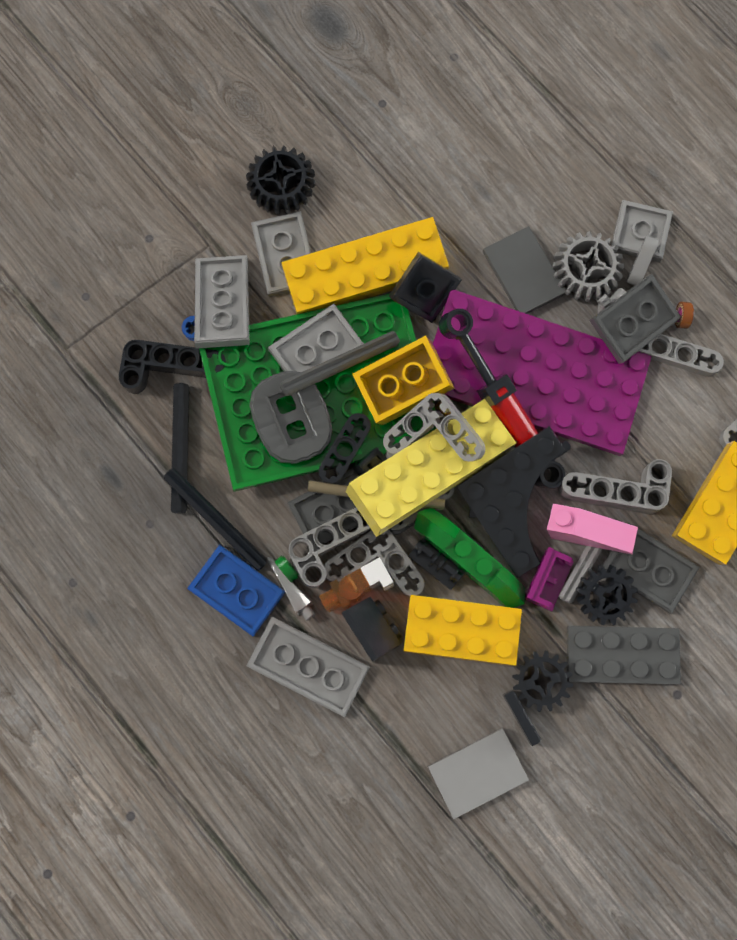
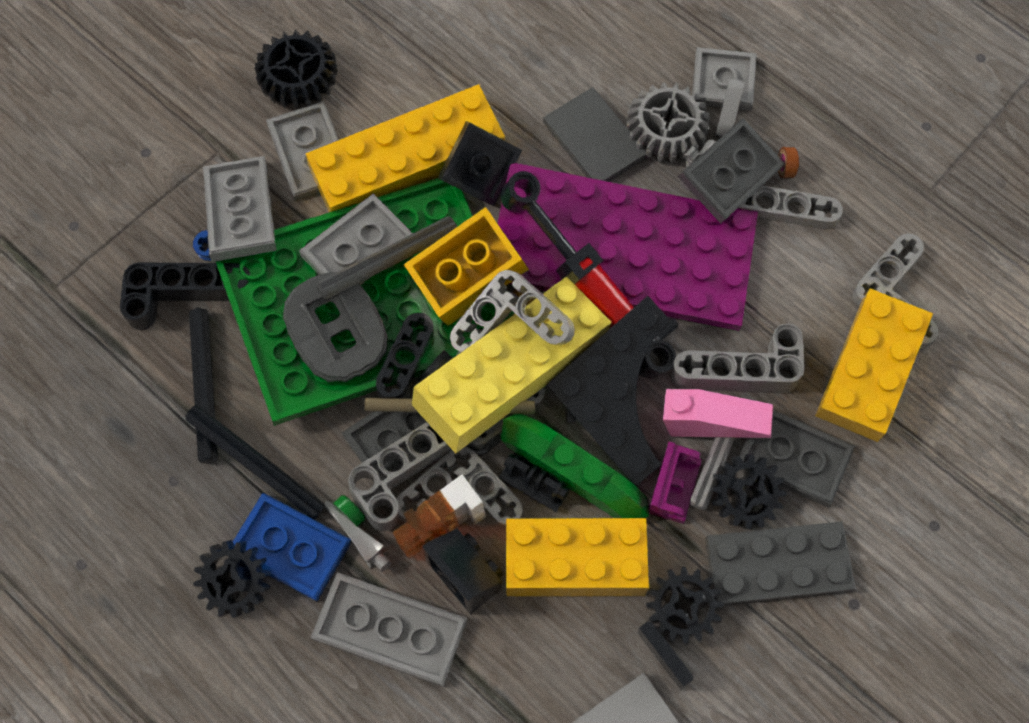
camera: 10 degrees left, 10 degrees down
(179, 616) = (218, 585): none -> black gear

